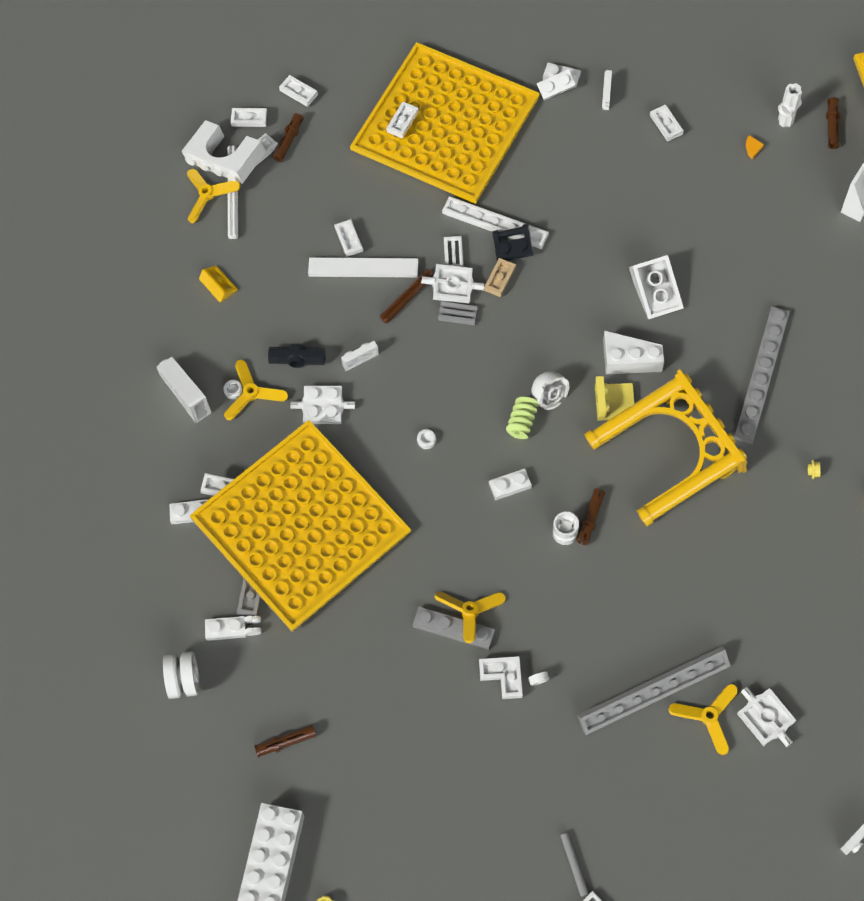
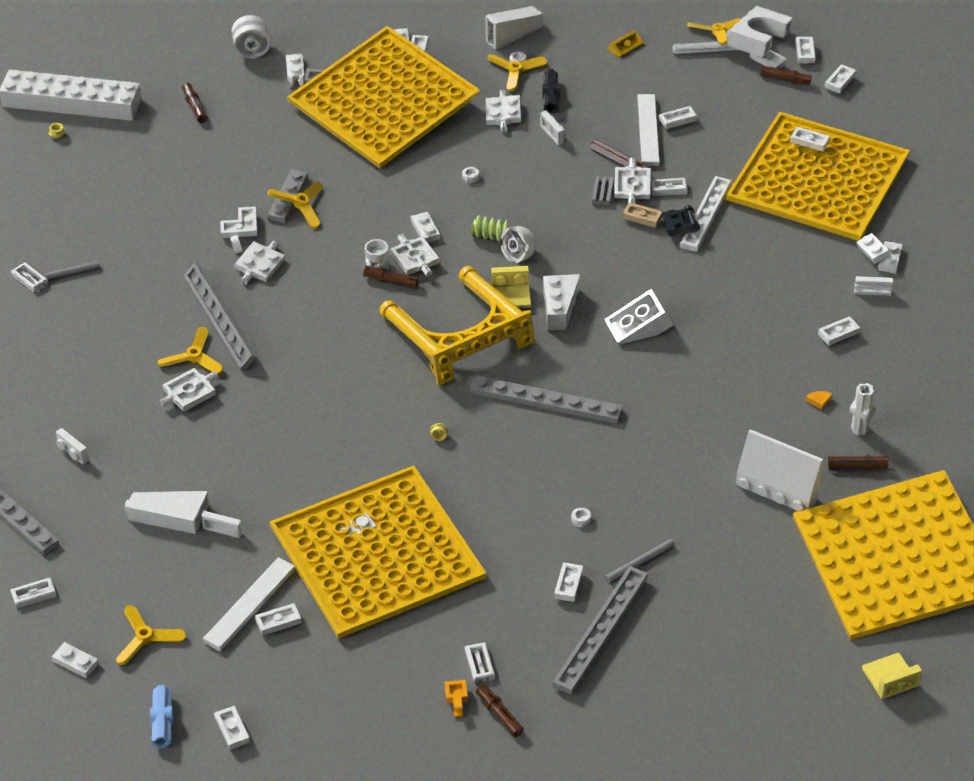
camera: 85 degrees right, 20 degrees down
(558, 493) = (414, 255): none -> white plate
(563, 653) = (259, 262): none -> white plate

